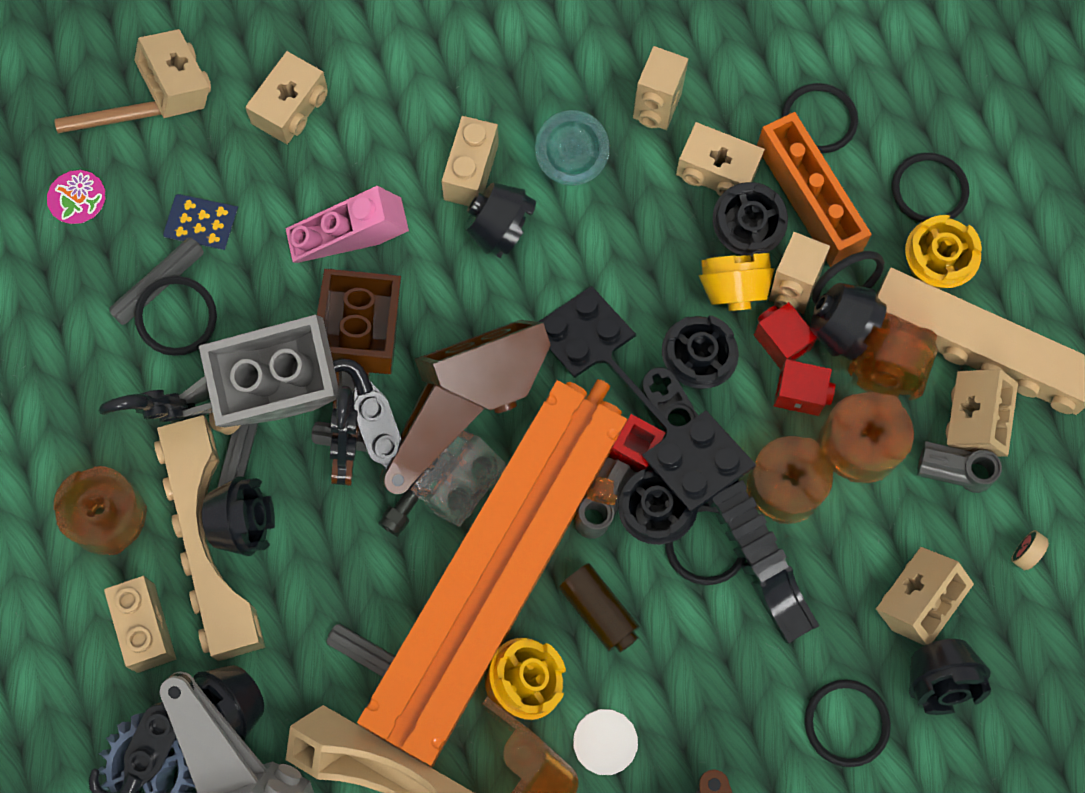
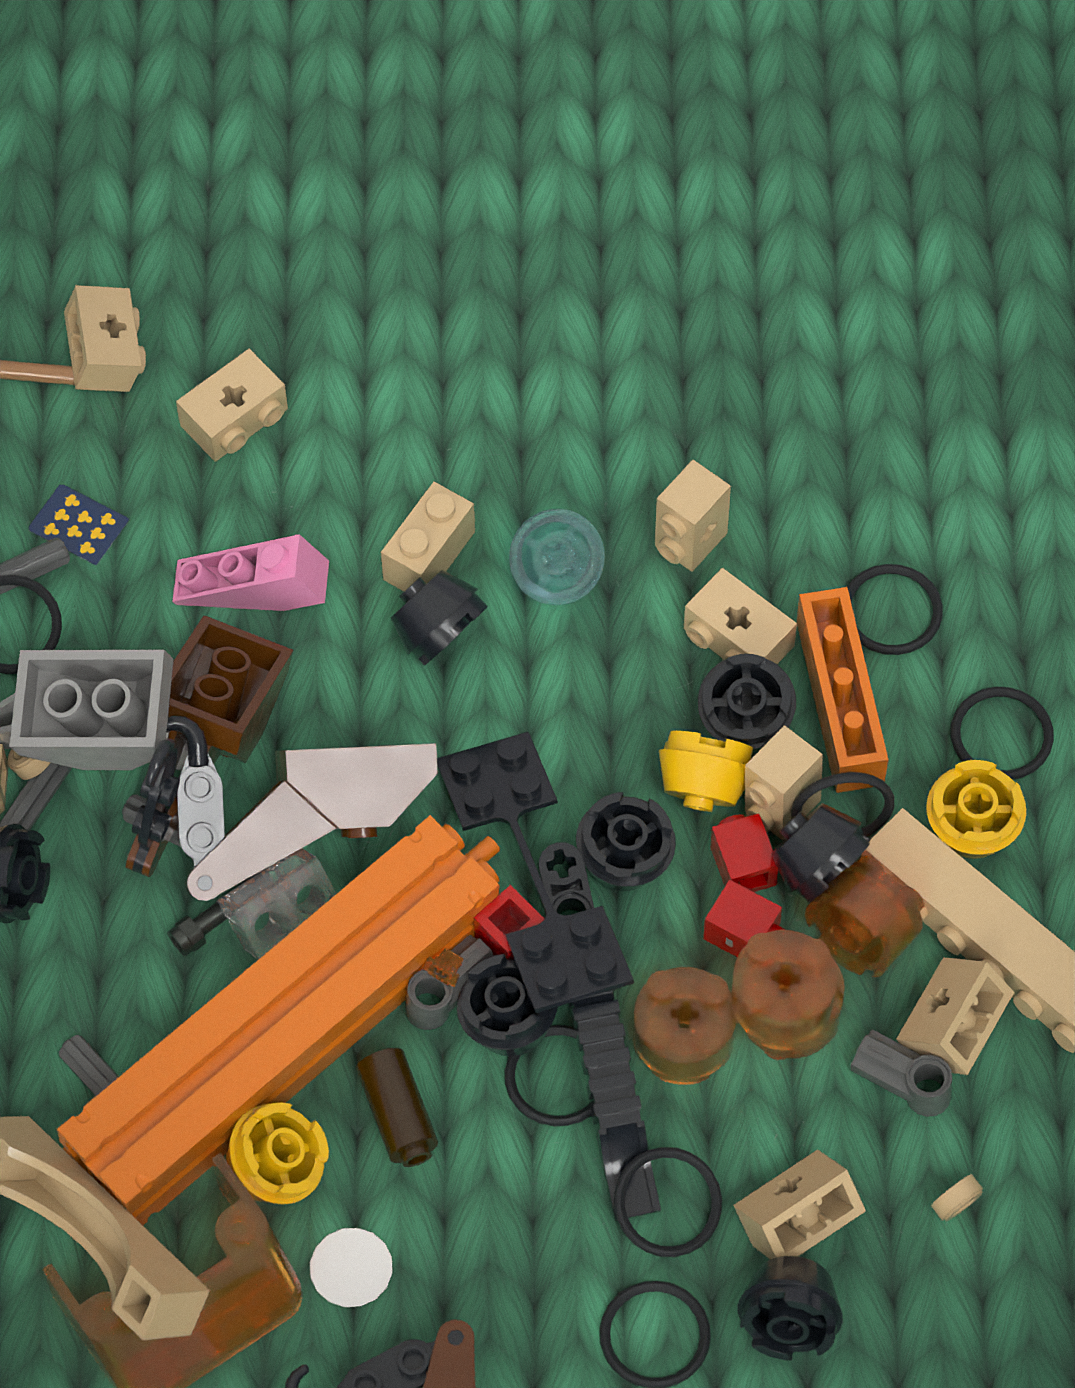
camera: 20 degrees right, 10 degrees down
(859, 619) = (633, 1235): none -> black tyre

